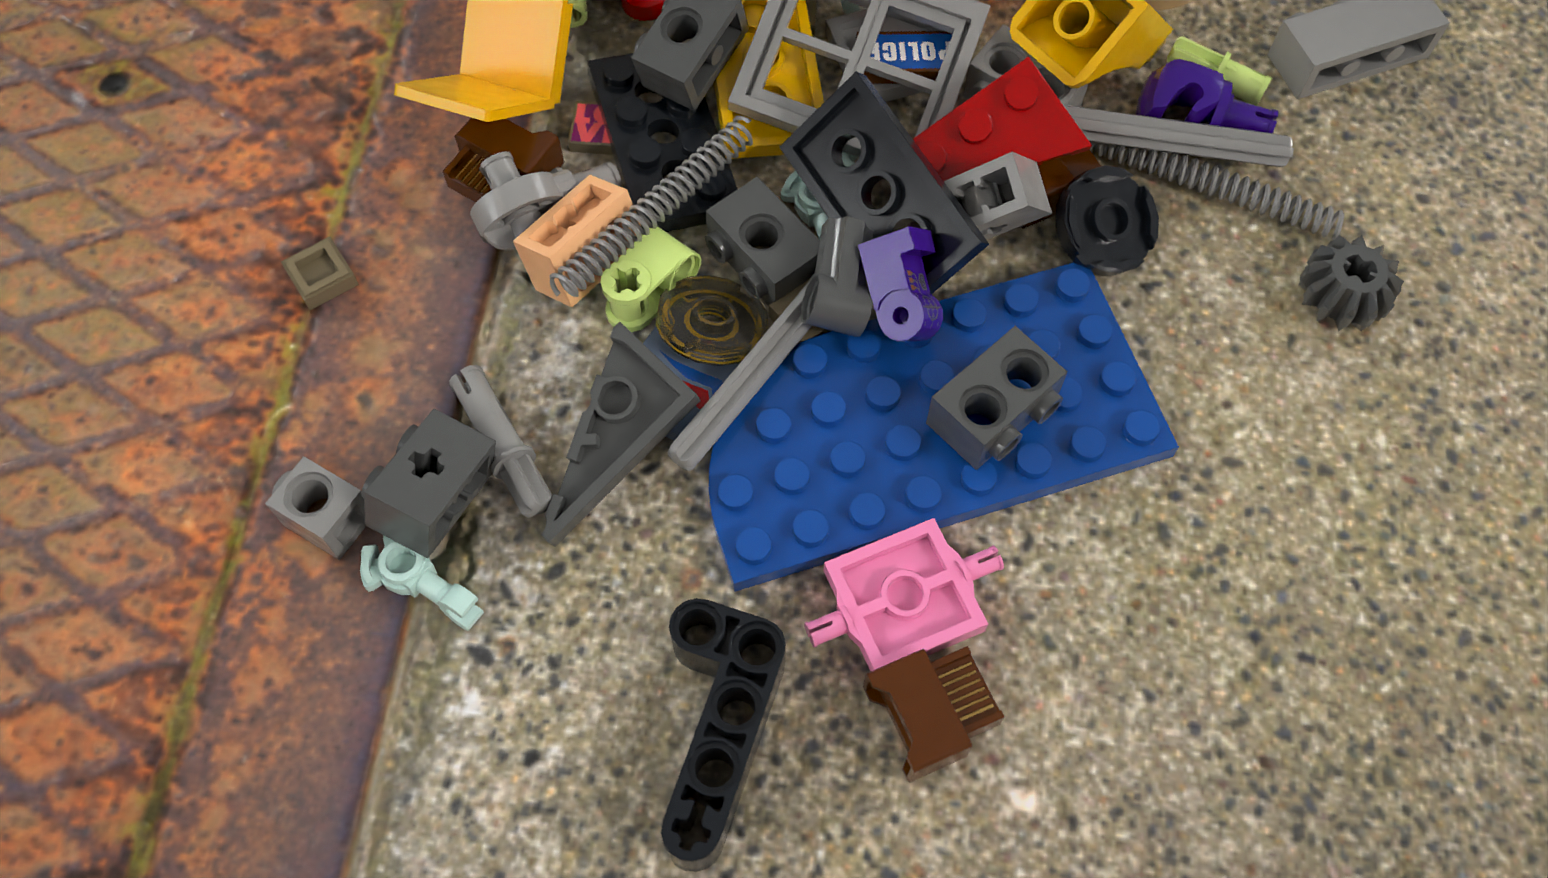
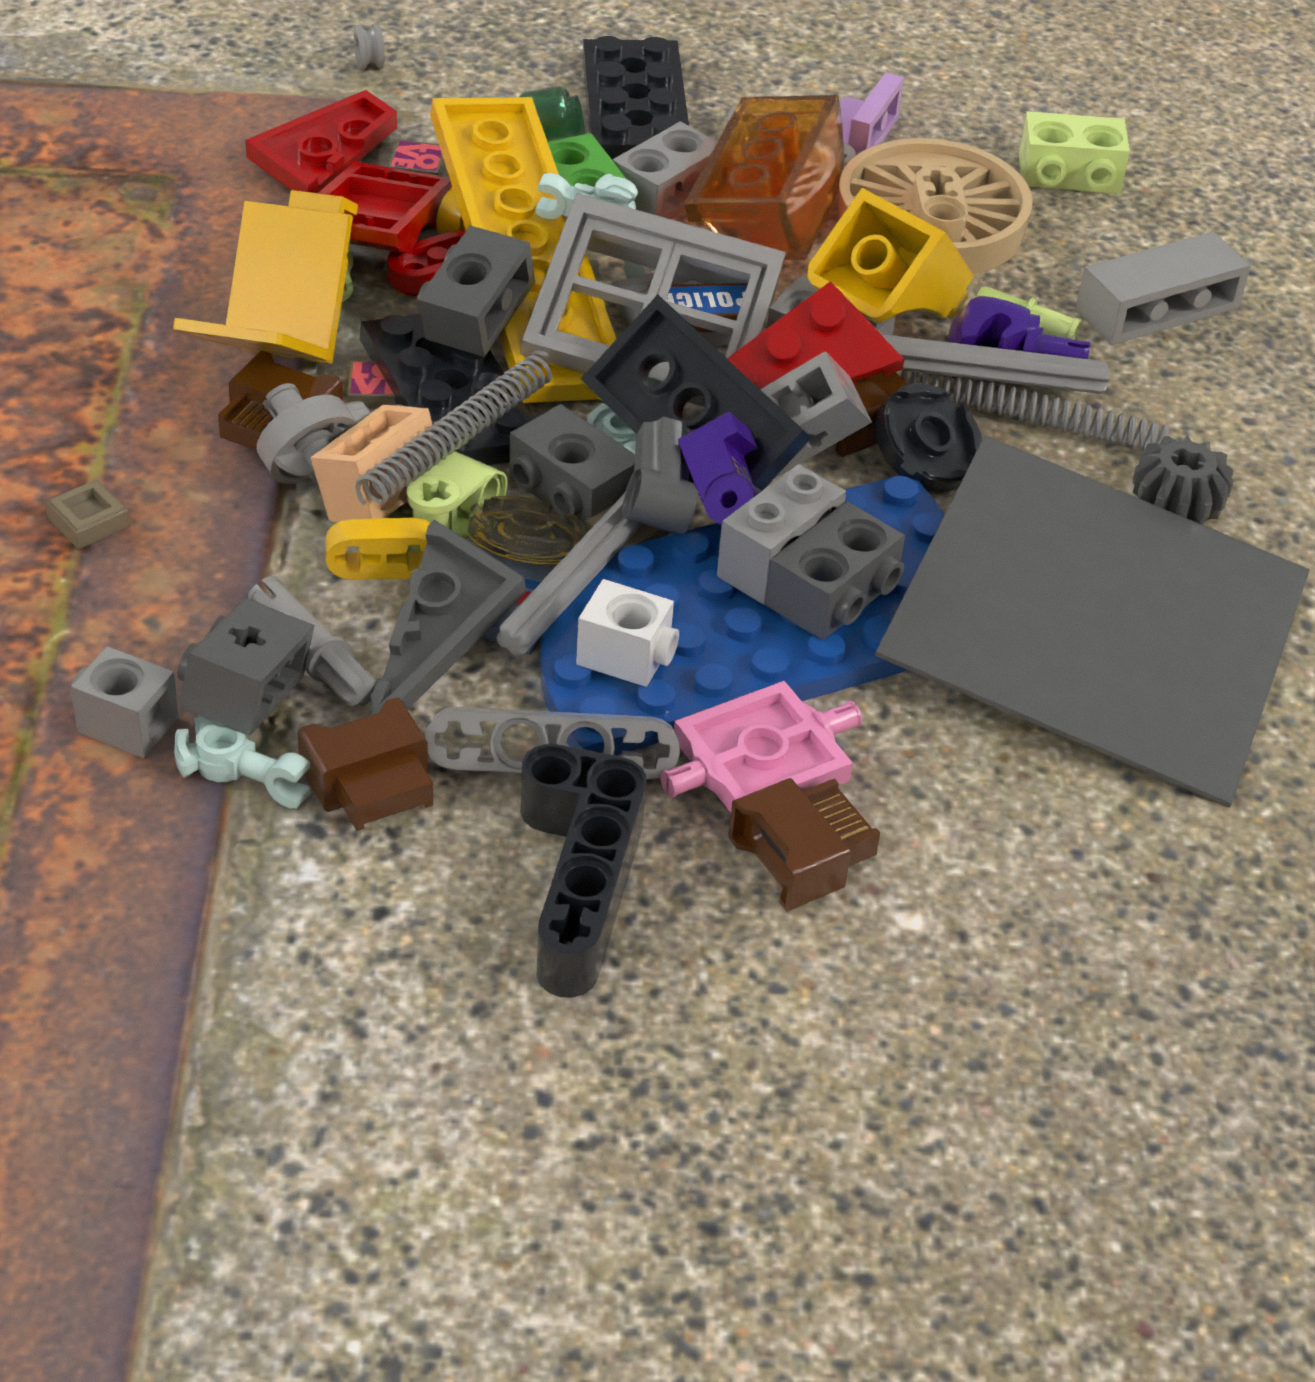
camera: 10 degrees left, 20 degrees down
(535, 597) = (369, 764): none -> reddish brown piece
(572, 332) = (381, 546): none -> yellow beam
(707, 569) = (551, 729): none -> light grey beam
(783, 444) = (626, 633): none -> white brick
(944, 347) = (771, 524): none -> light grey brick
(1249, 451) = (1099, 619): none -> dark grey piece

